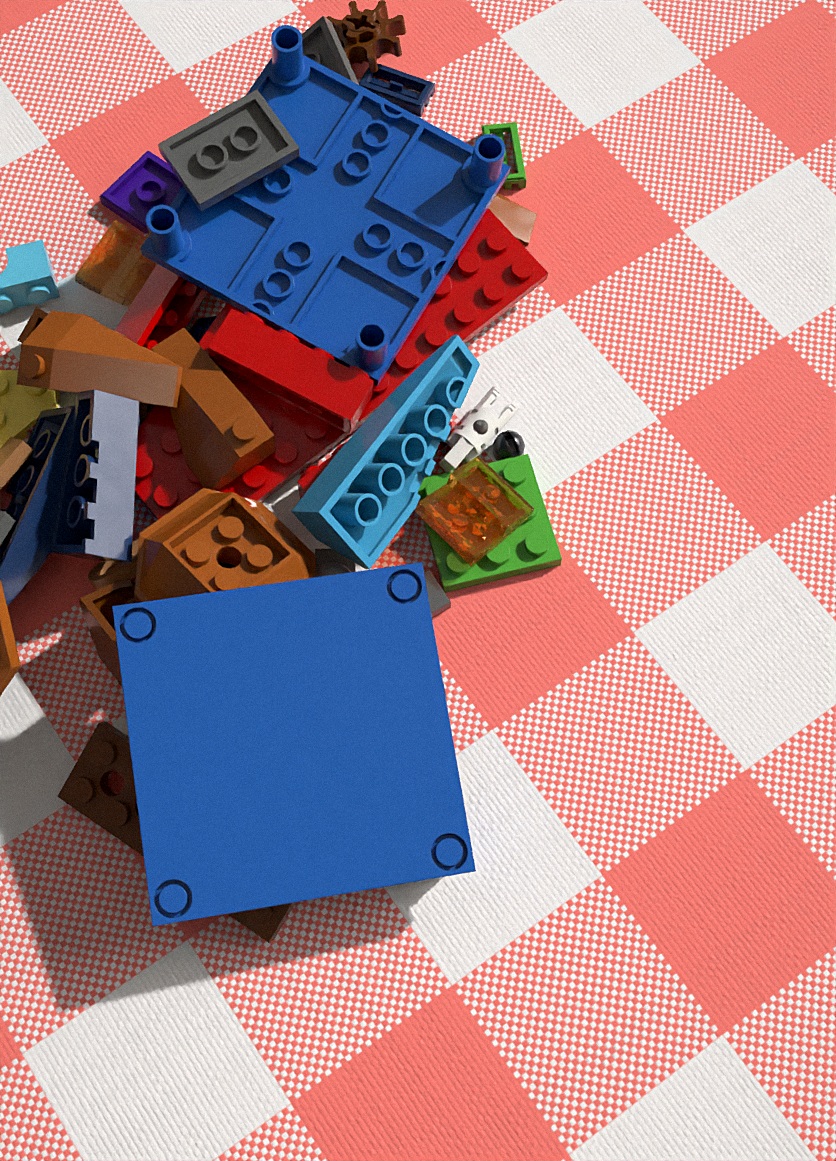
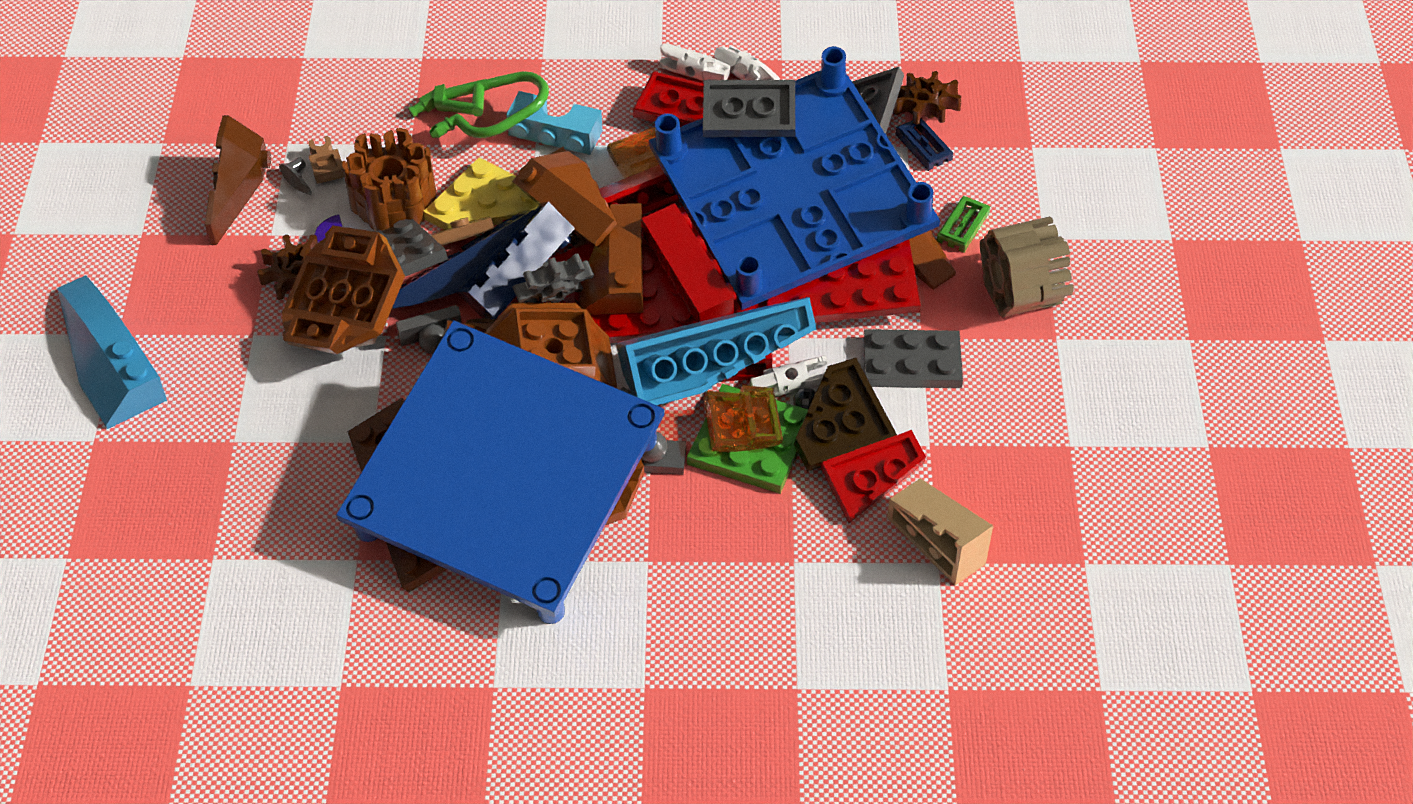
camera: 35 degrees right, 15 degrees down
(55, 614) = (427, 328): none -> dark grey tile
(92, 129) = (693, 63): none -> white hinge
(118, 182) = (670, 95): none -> red tile
(155, 102) = (744, 65): none -> white hinge
(168, 480) = (553, 280): none -> dark grey gear
(564, 444) = (841, 416): none -> dark brown plate
(571, 334) = (913, 358): none -> dark grey plate
(617, 174) = (1019, 266): none -> dark tan piece
(634, 486) = (871, 471): none -> red wing
(756, 506) = (941, 529): none -> tan wedge

